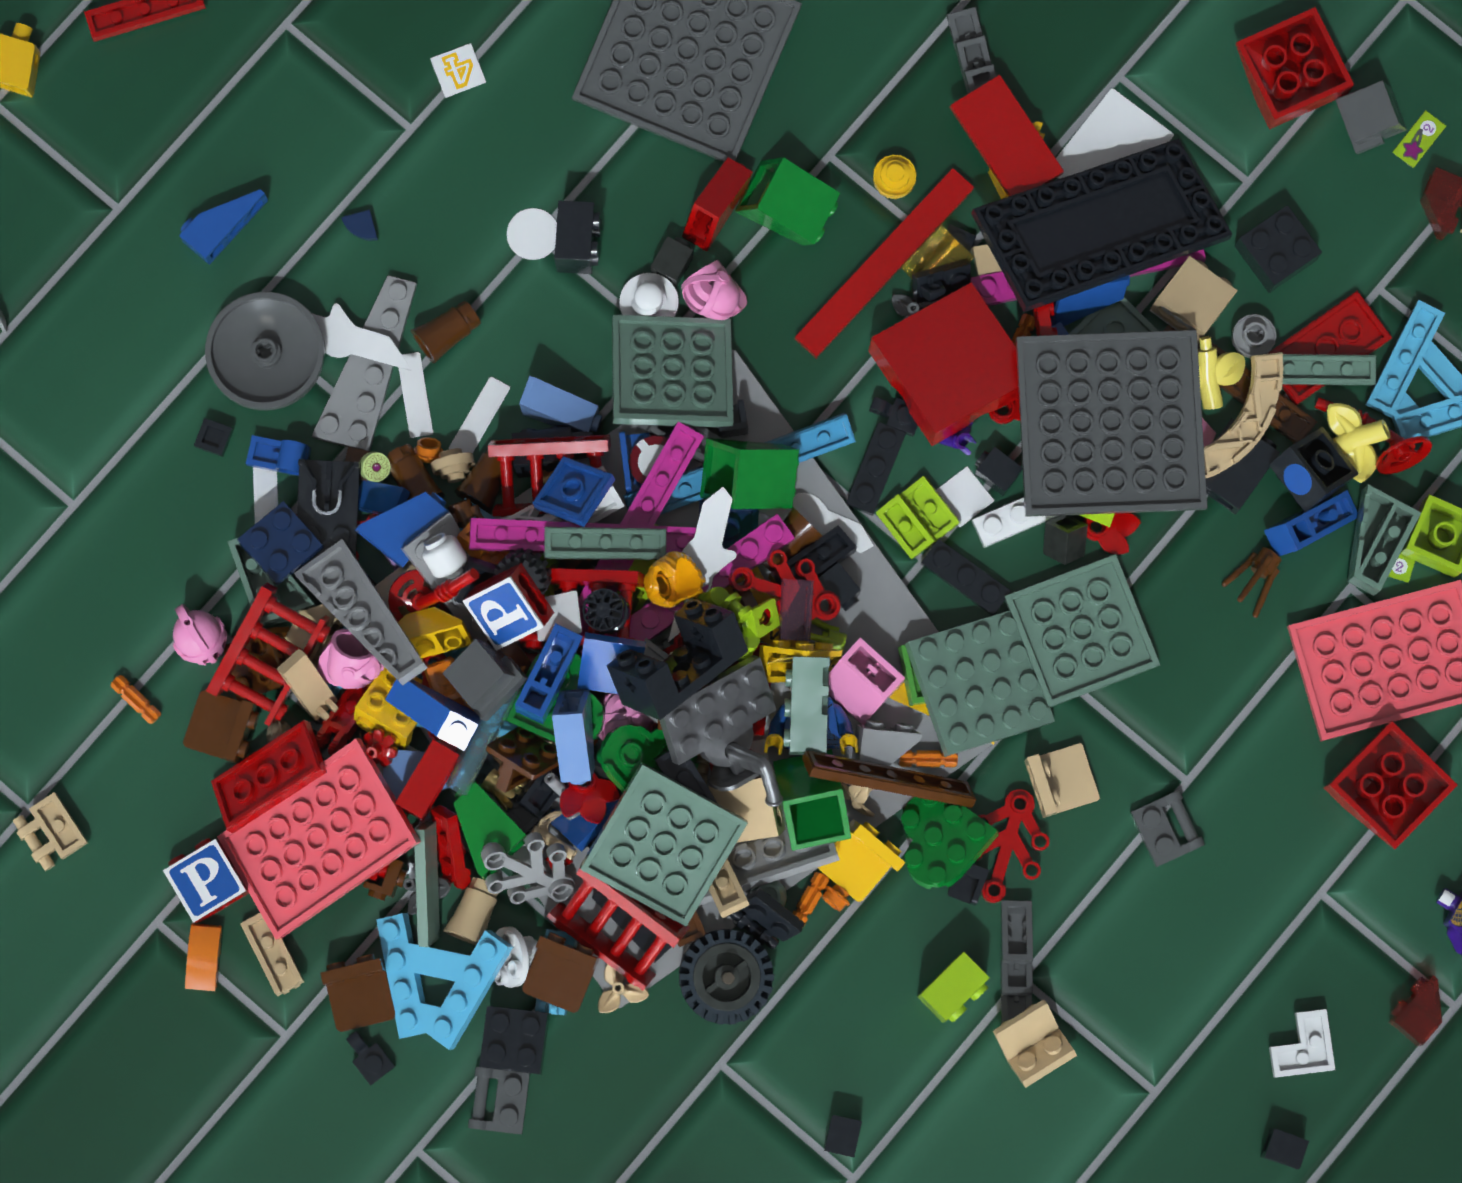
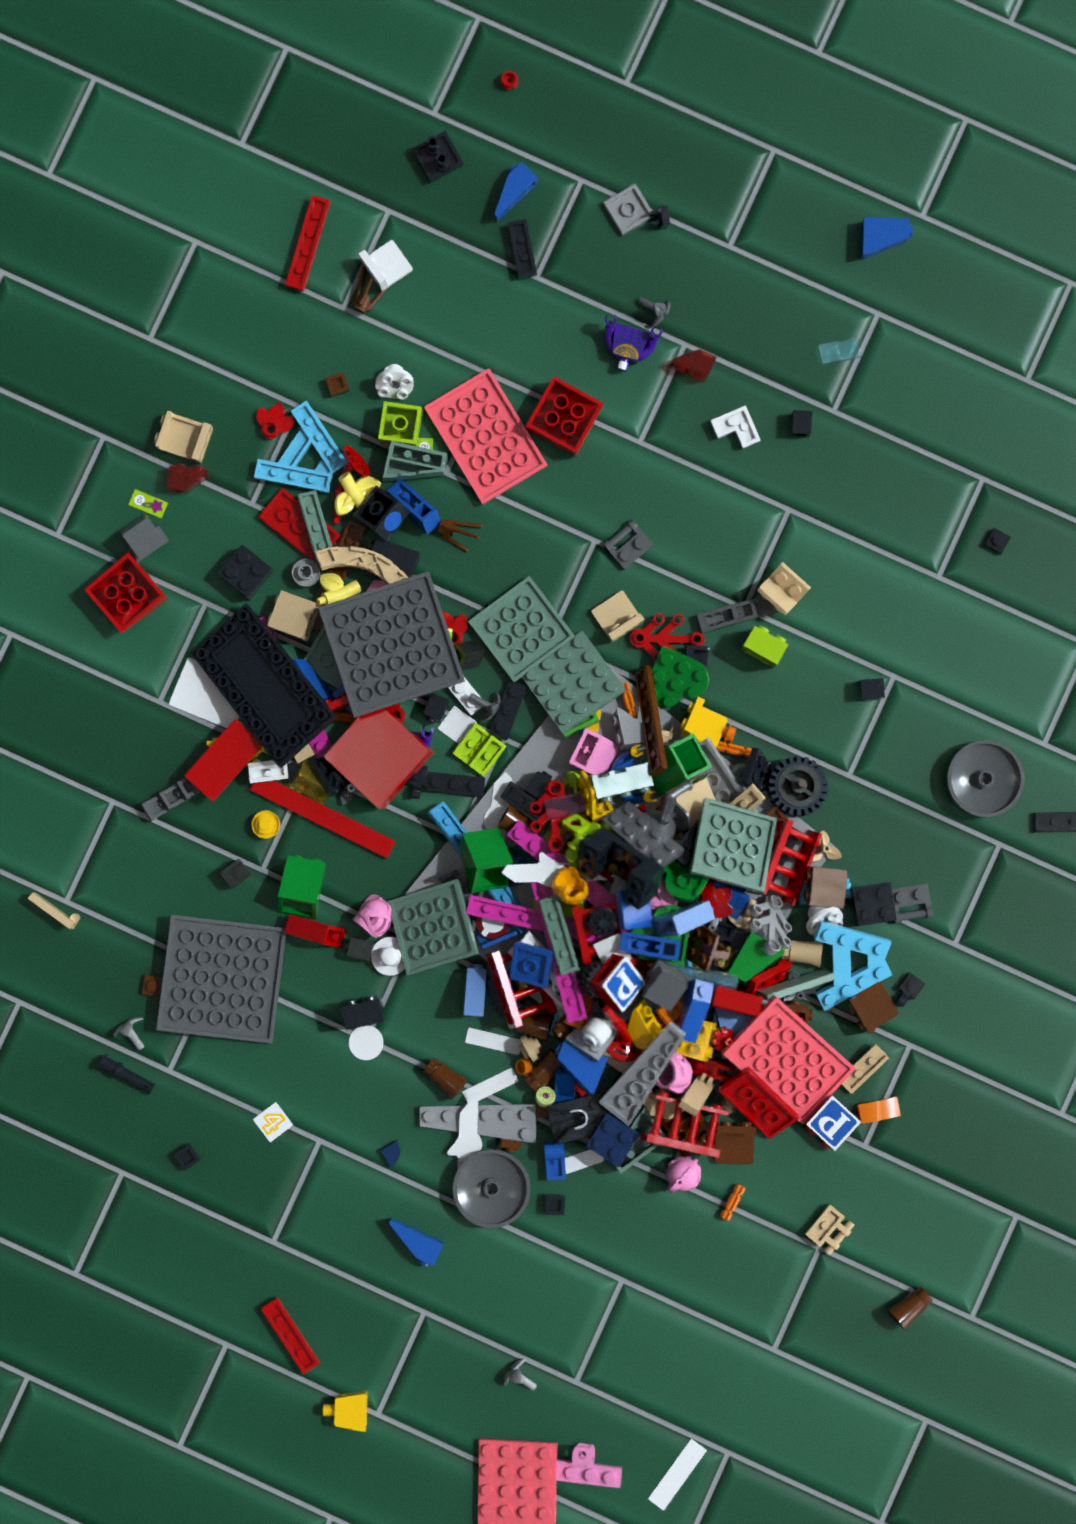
camera: 105 degrees left, 5 degrees up
(319, 397) = (510, 1145): none -> reddish brown plate
(835, 113) = (235, 873): none -> pearl dark grey panel
(974, 192) = (266, 771): none -> white tile
(976, 551) = (490, 707): none -> dark grey plant

